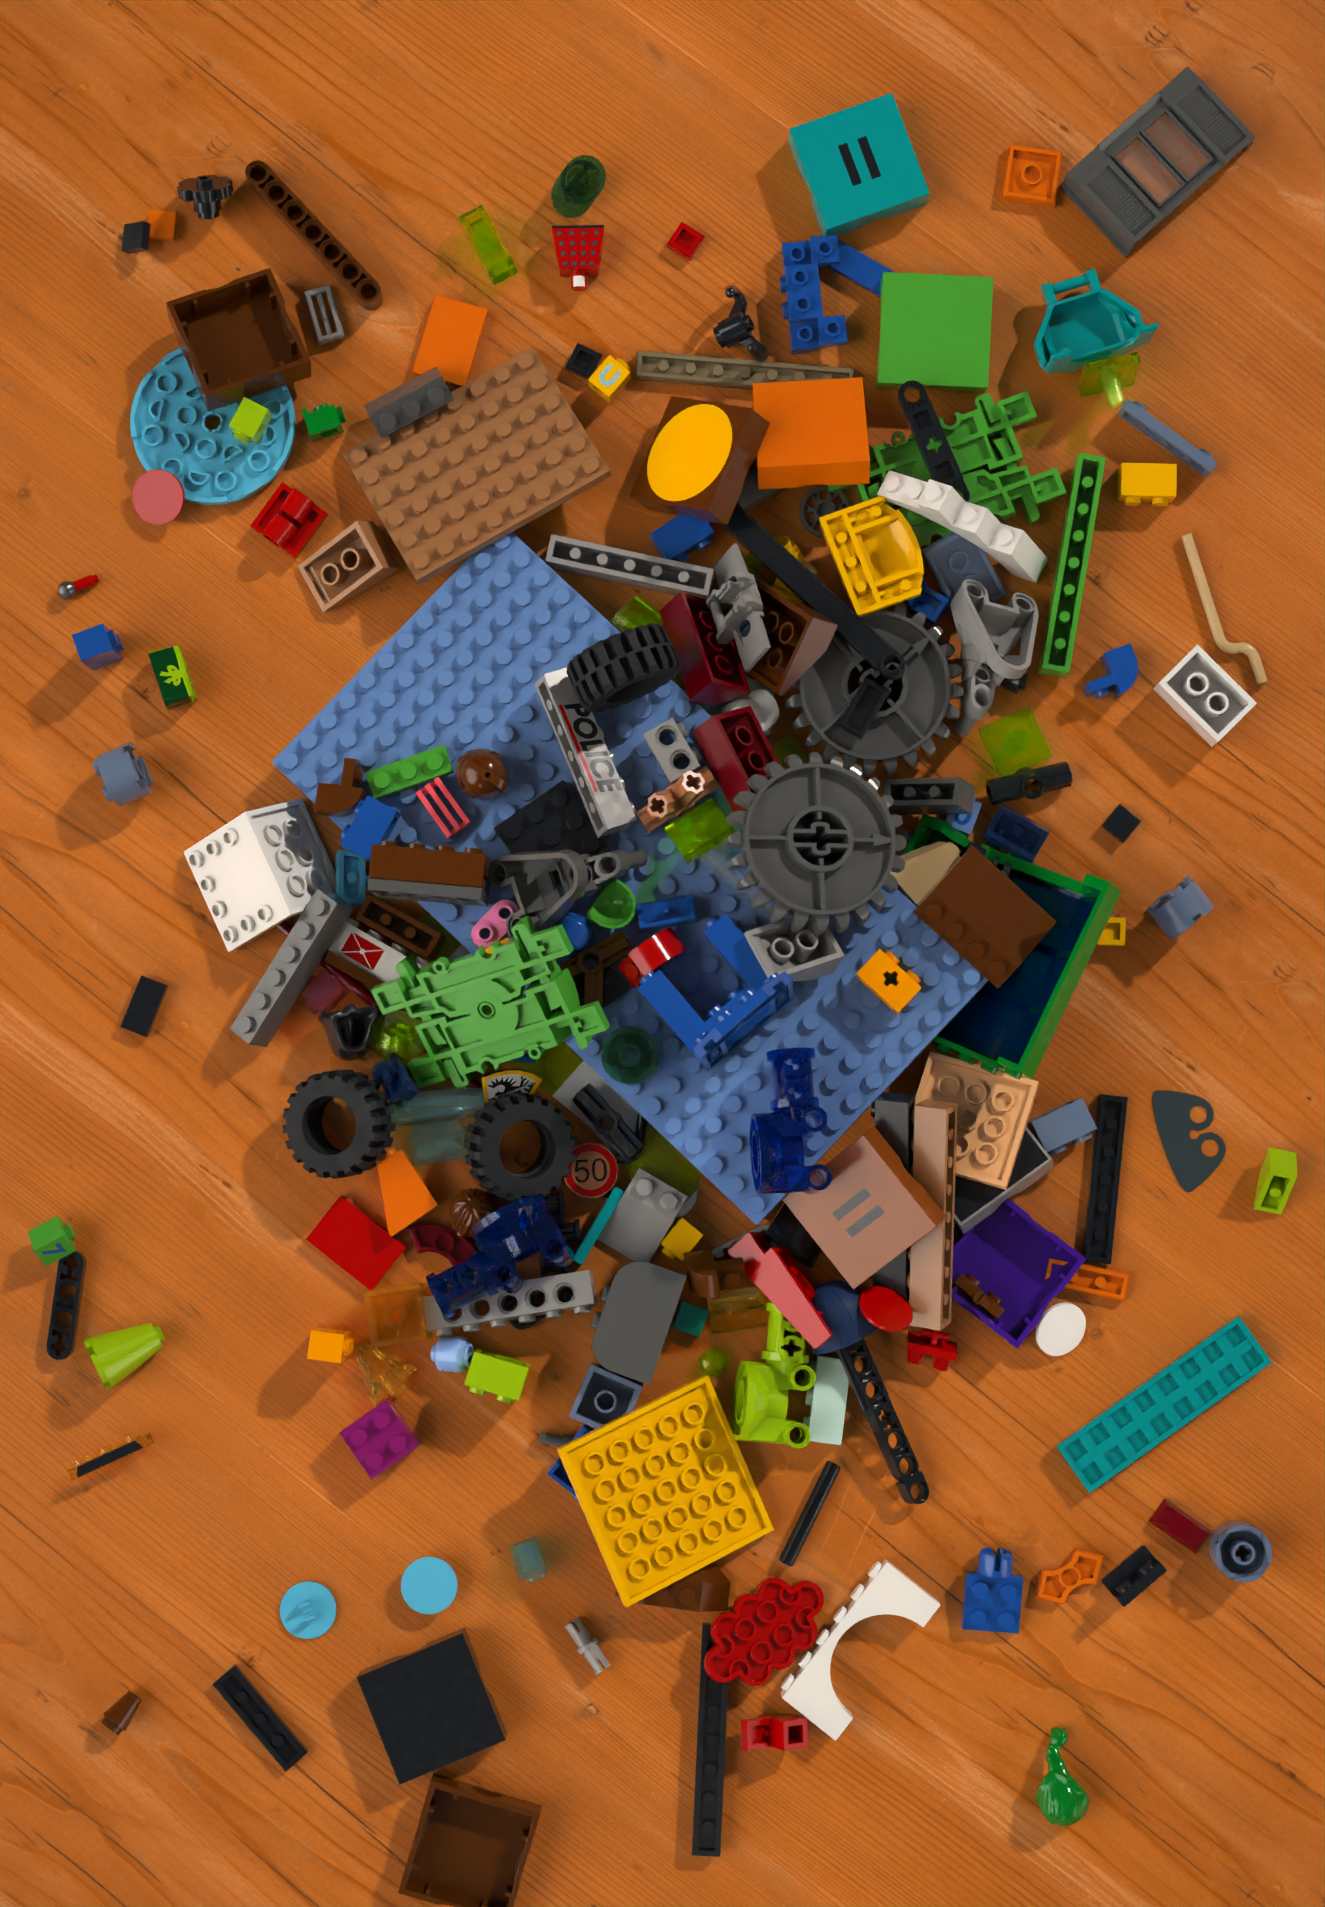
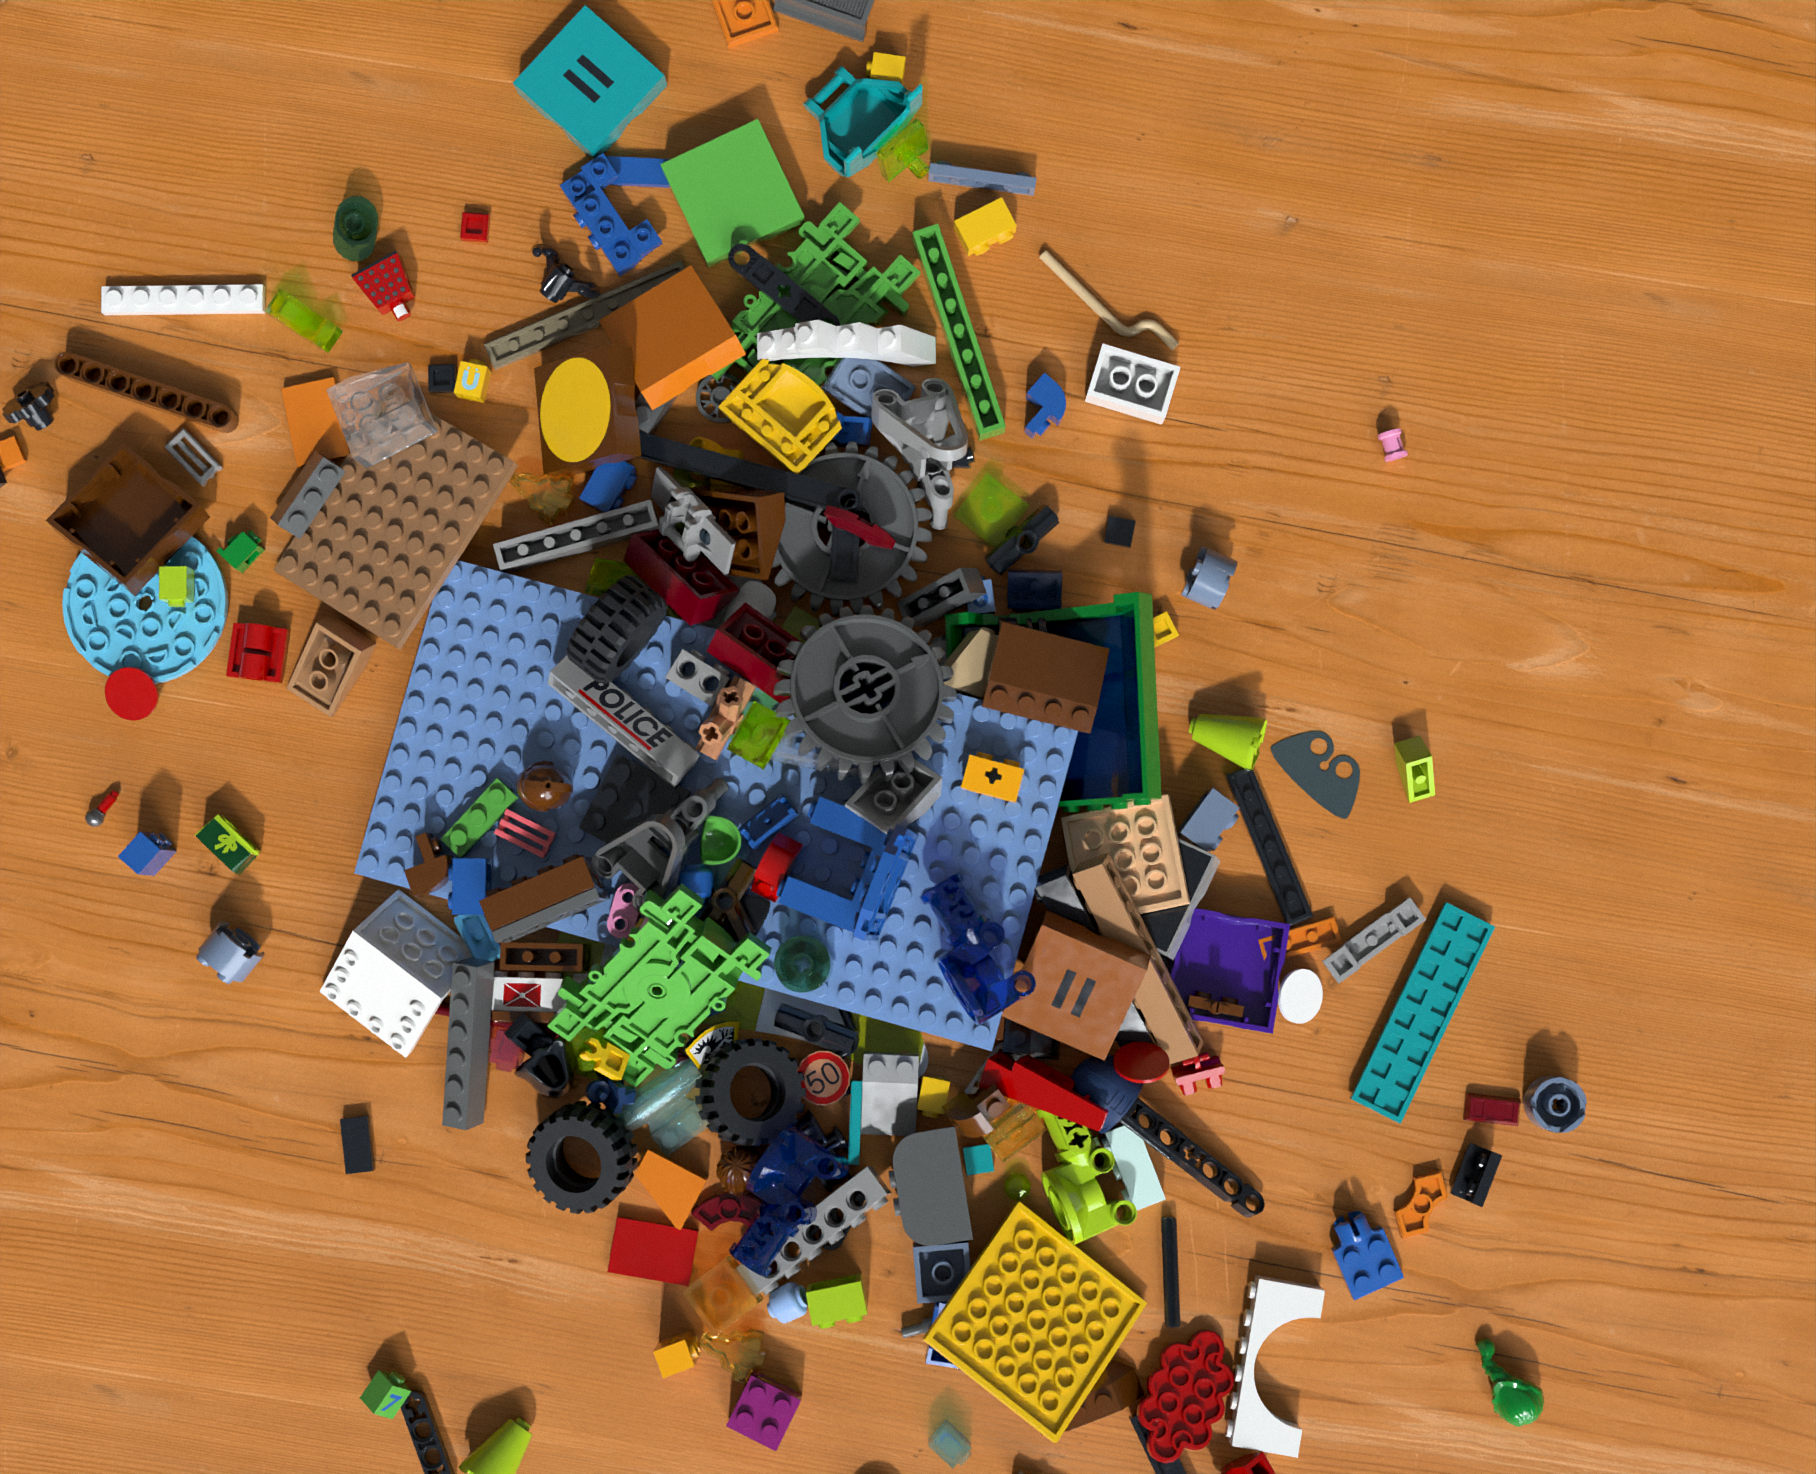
camera: 30 degrees left, 0 degrees up
(349, 988) = (528, 1034): none -> black tile
(390, 169) = (183, 299): none -> white plate
(409, 1049) = (608, 1058): none -> yellow plate
(514, 364) = (381, 412): none -> clear slope
(621, 514) = (546, 494): none -> clear yellow rock
(884, 684) = (851, 522): none -> dark red tile
(1123, 1061) = (1230, 736): none -> lime cone
(1134, 291) = (886, 67): none -> yellow brick
(1154, 1314) = (1373, 939): none -> light grey slope

